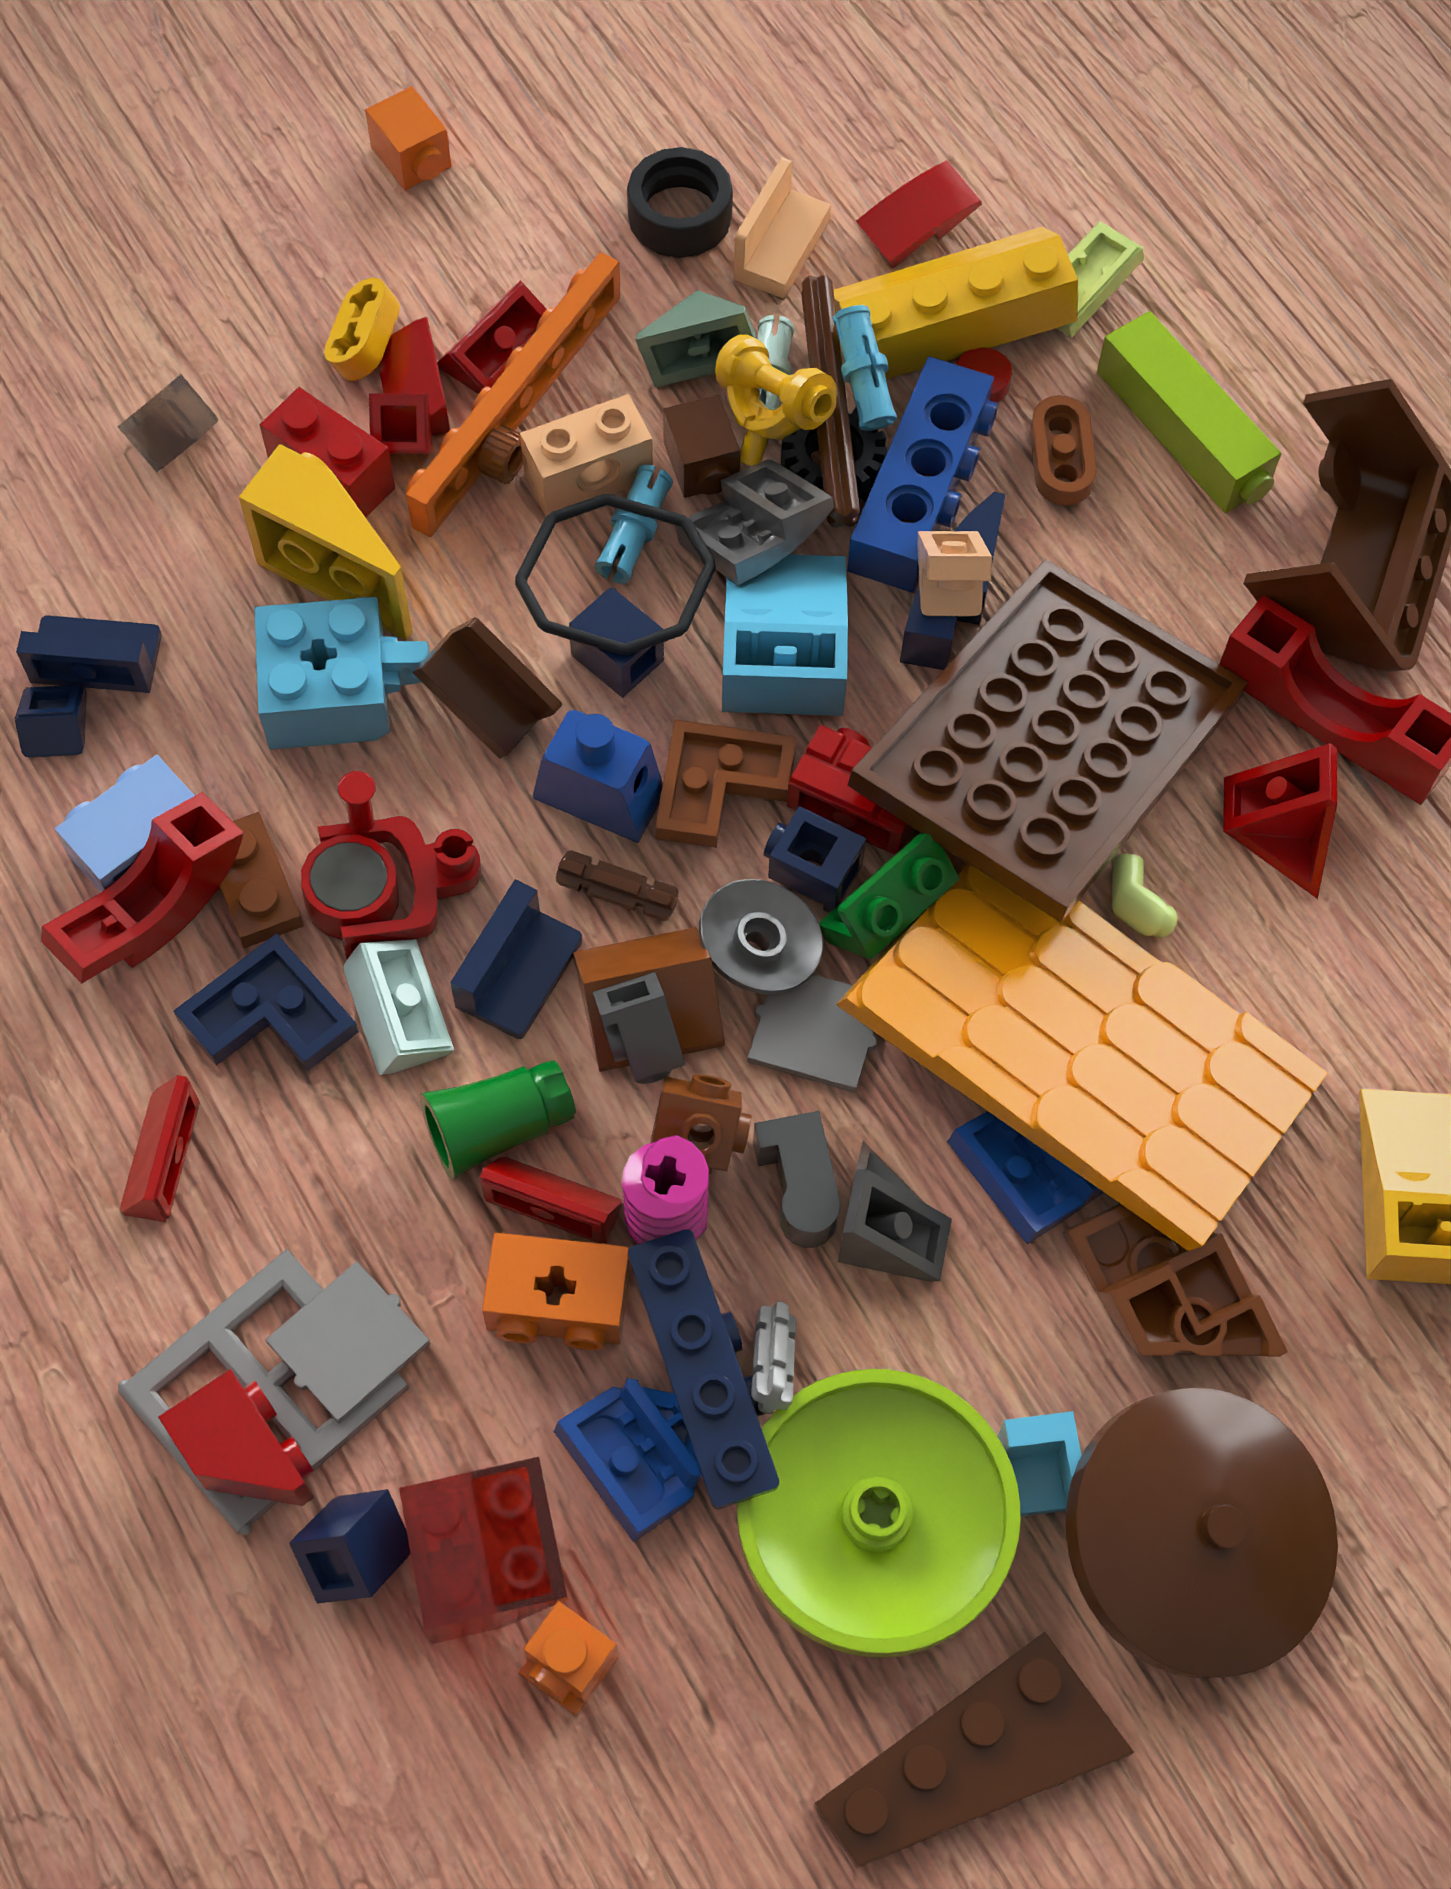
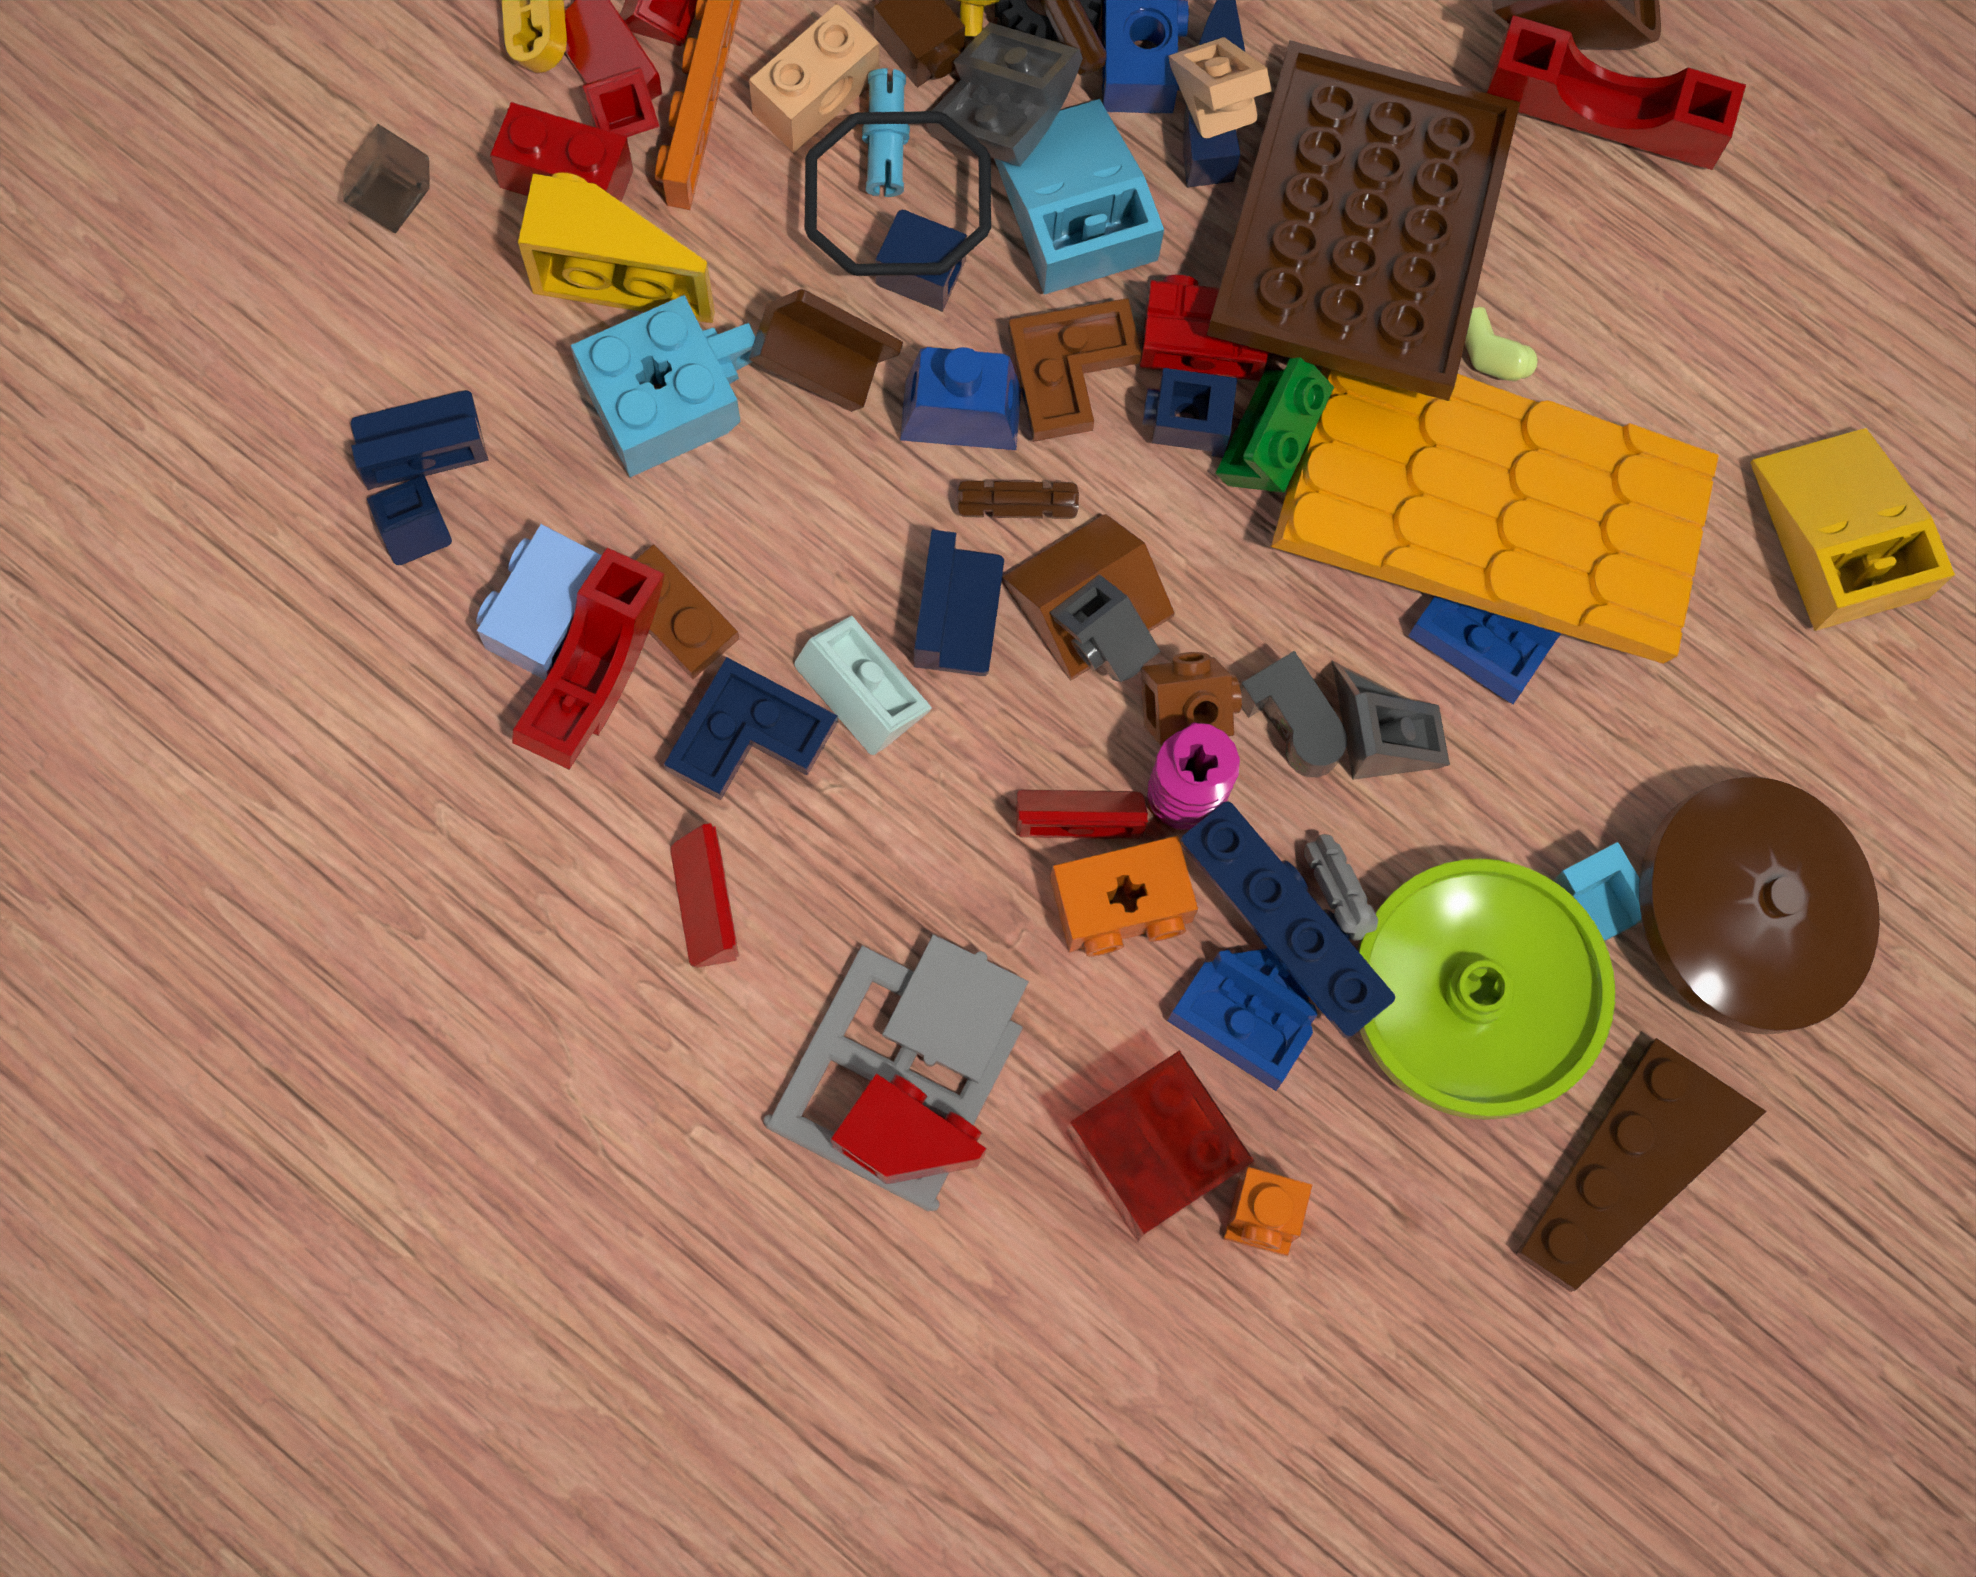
camera: 25 degrees left, 10 degrees up
(352, 1546) = (1039, 1185): dark blue panel -> none
(353, 880) = (777, 580): red piece -> none
(495, 1114) = (1001, 757): green plant -> none
(501, 454) = (729, 102): dark orange axle -> none
(772, 919) = (1186, 489): flat silver dish -> none
(811, 1036) = (1246, 577): light grey piece -> none
(1170, 1296) = (1651, 707): dark orange slope -> none
(1286, 812) = (1599, 219): red slope -> none

